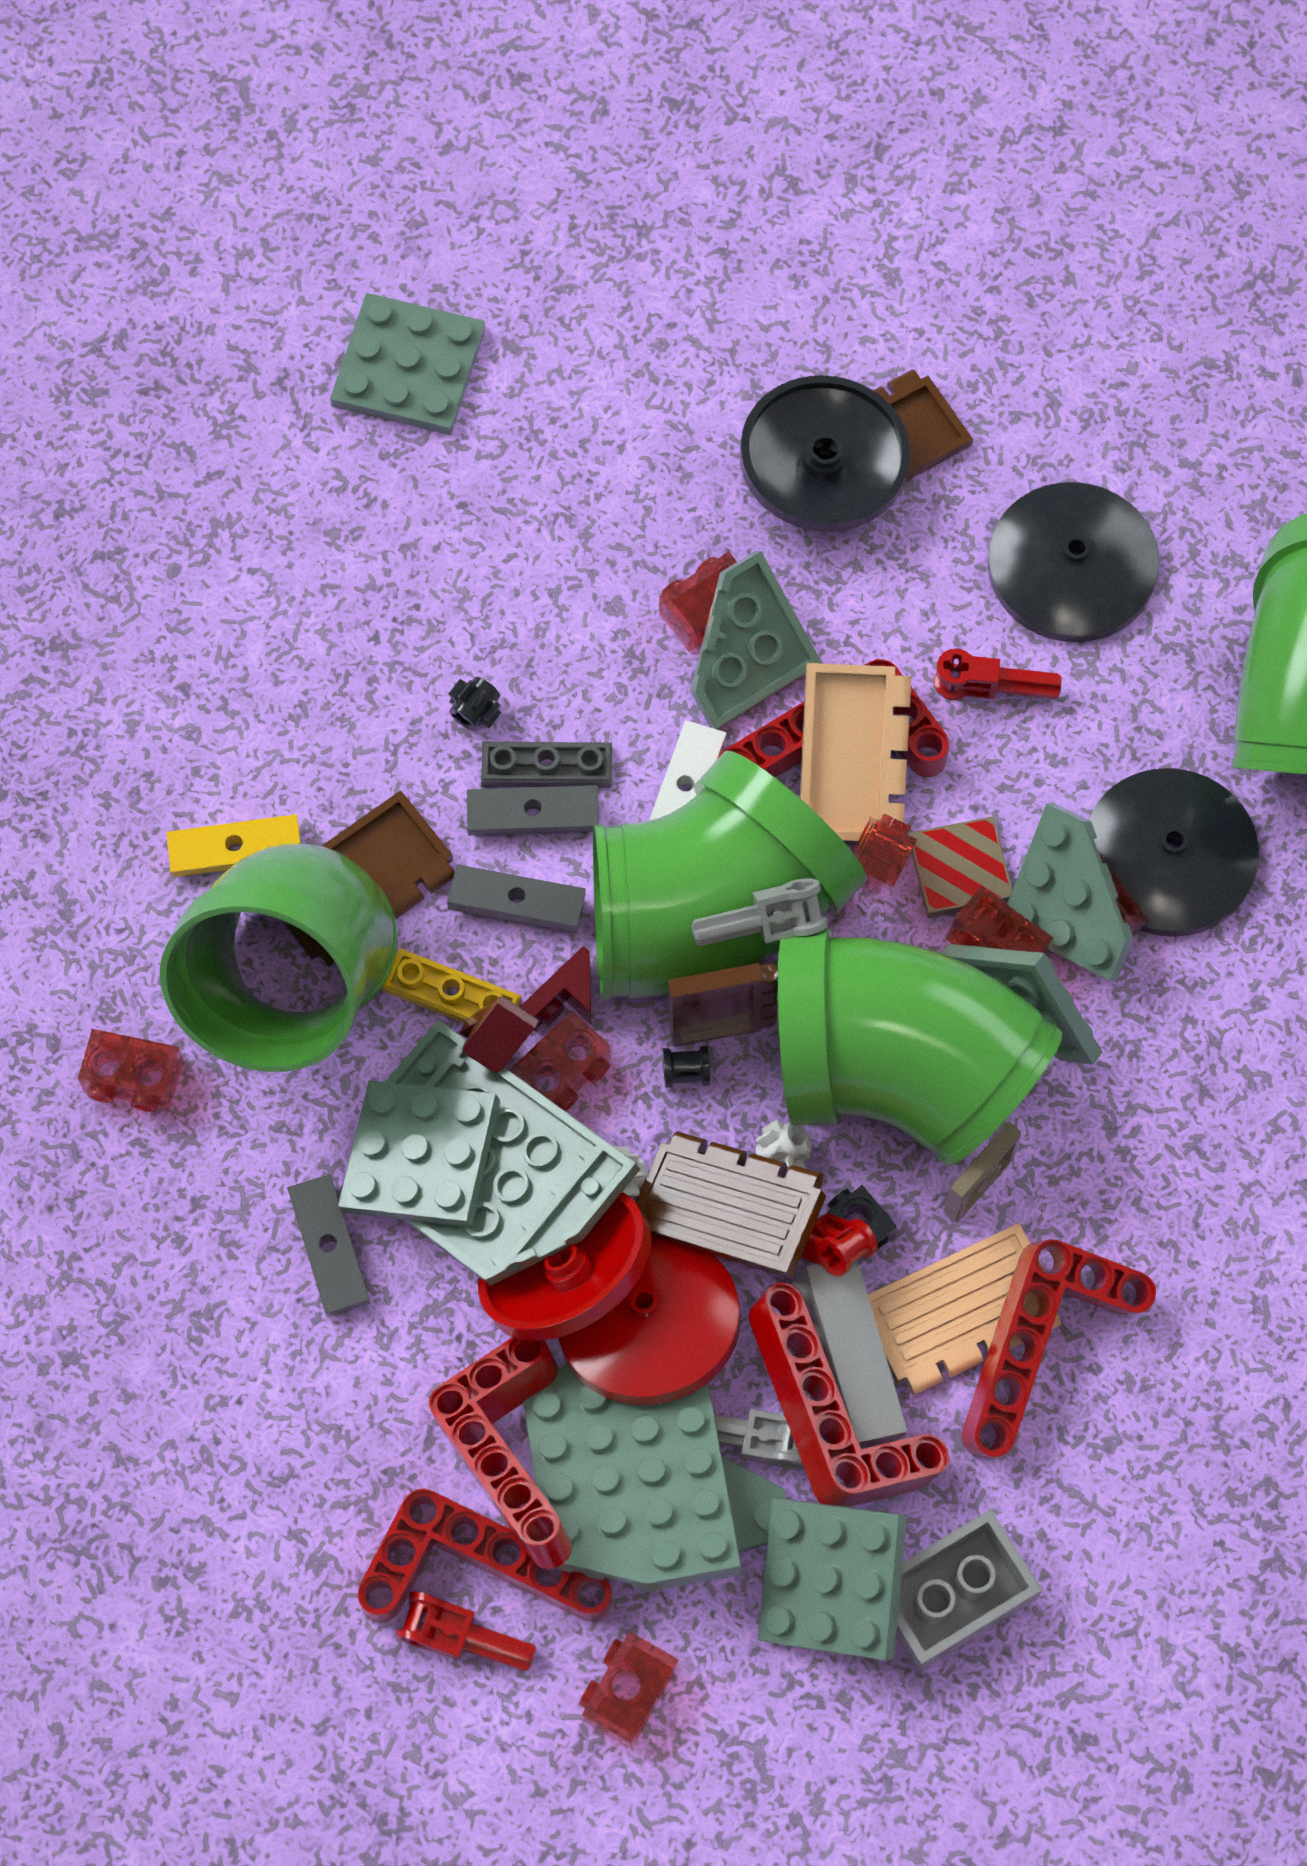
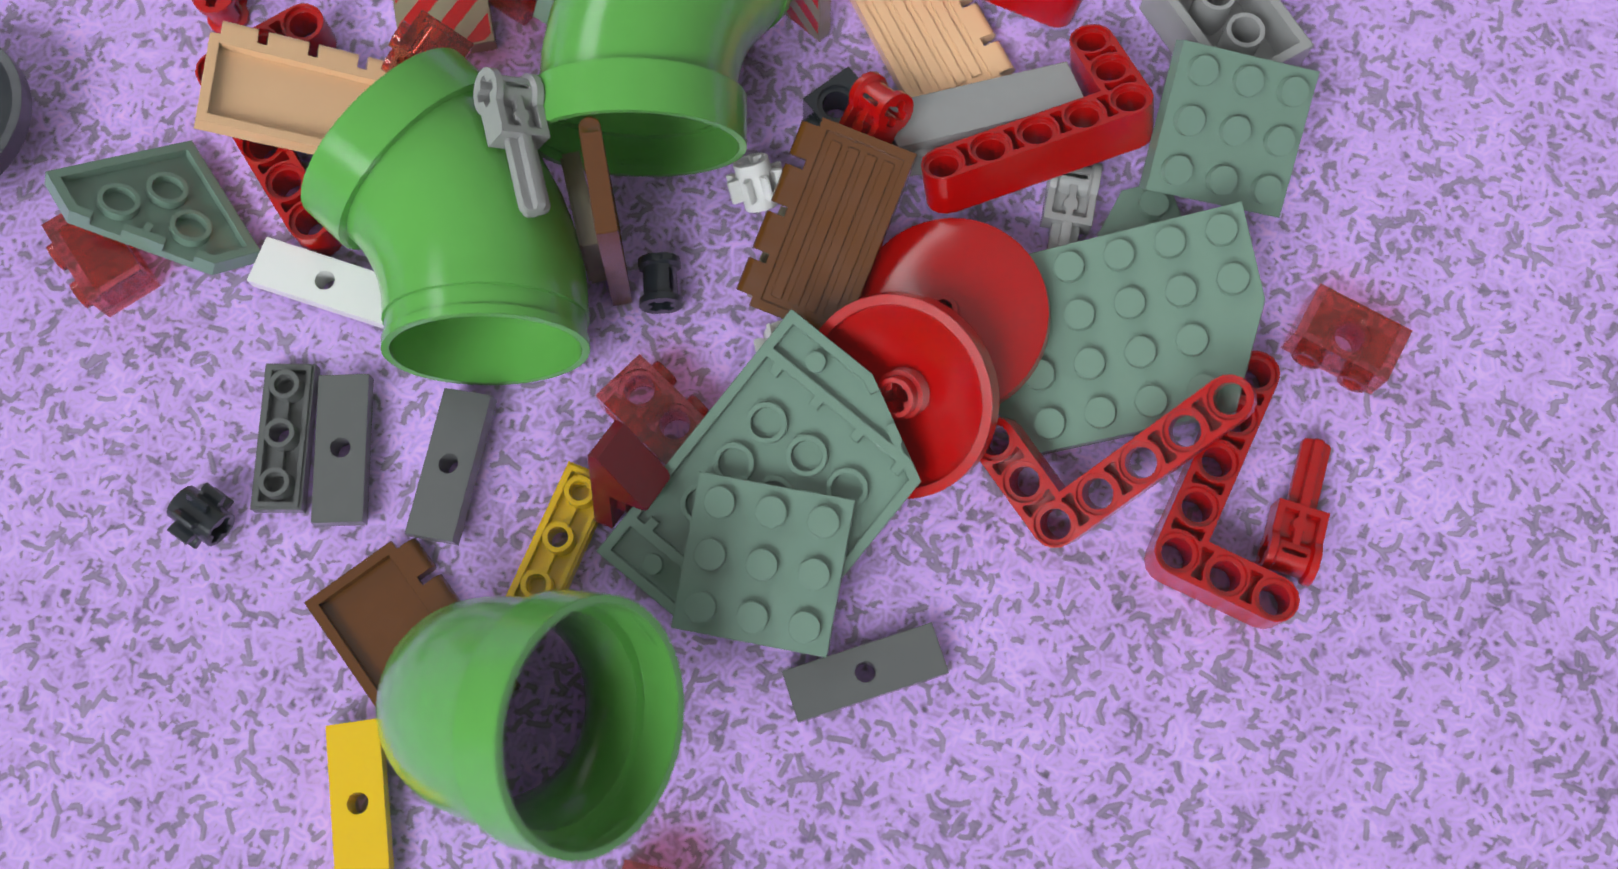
camera: 90 degrees left, 5 degrees up
(567, 984) = (561, 402): dark red slope -> none

